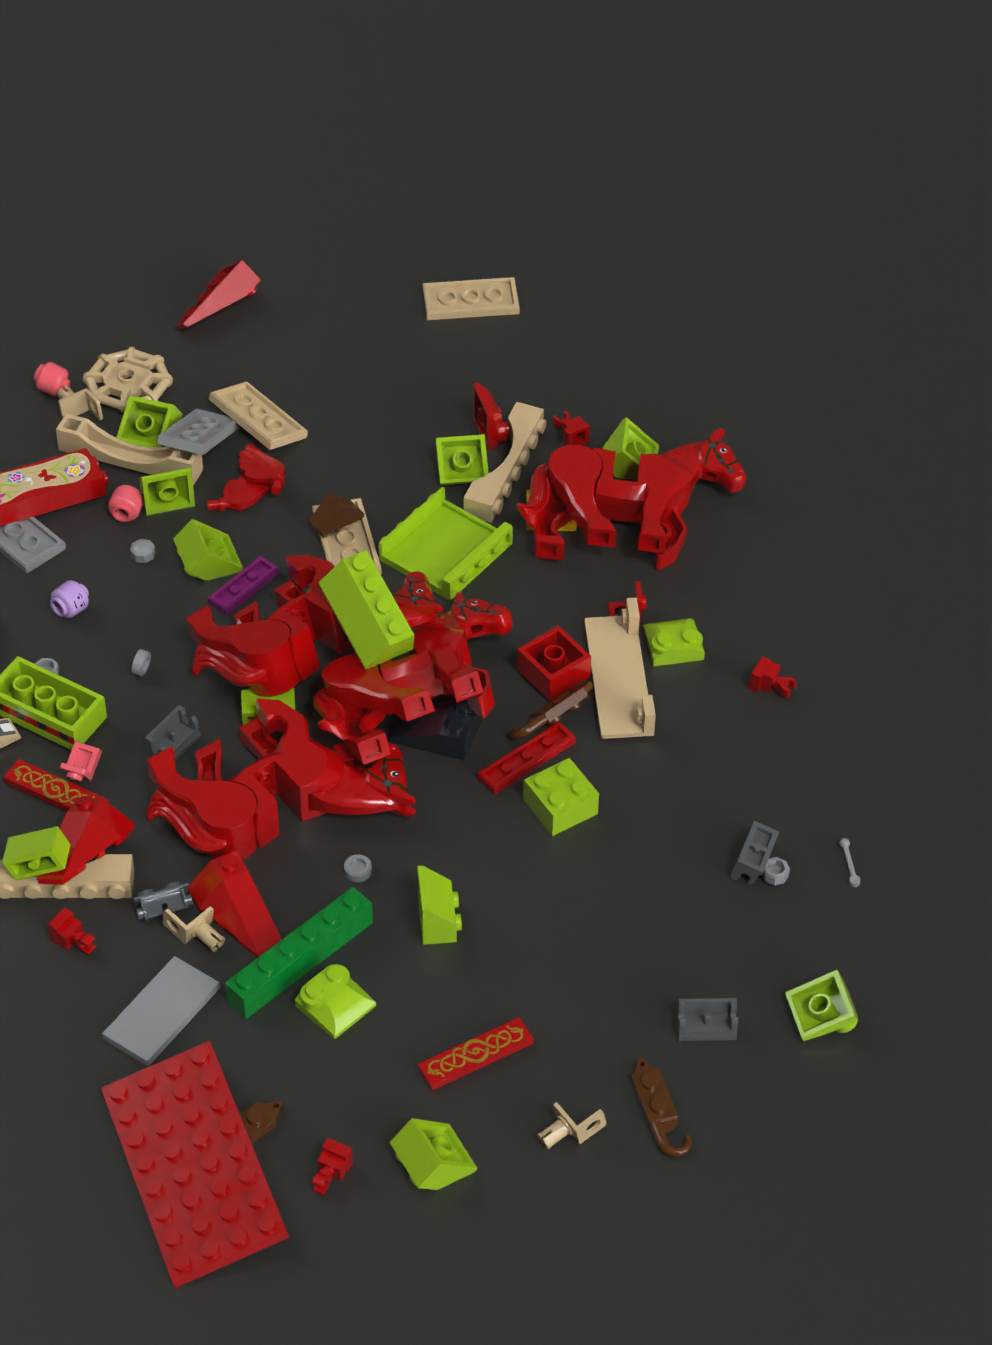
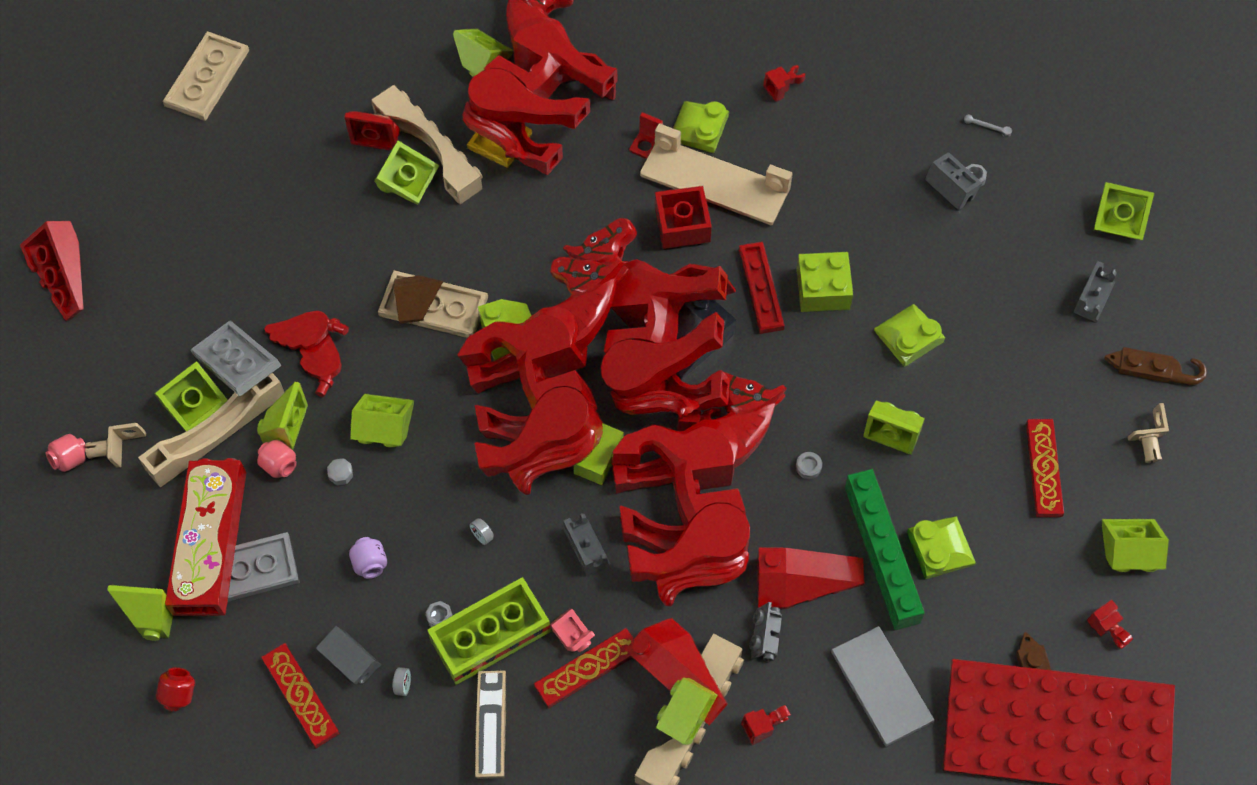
camera: 60 degrees left, 15 degrees up
(115, 381) = (110, 402): tan plate -> none
(197, 928) = (813, 617): tan bracket -> none
(243, 585) = (435, 409): magenta tile -> none
(258, 415) = (236, 303): tan tile -> none
(367, 610) = (593, 315): lime slope -> none
(444, 545) = (493, 234): lime panel -> none
(552, 711) = (727, 241): reddish brown plate -> none
(553, 891) = (910, 334): none -> lime slope
(574, 430) = (426, 78): red piece -> none

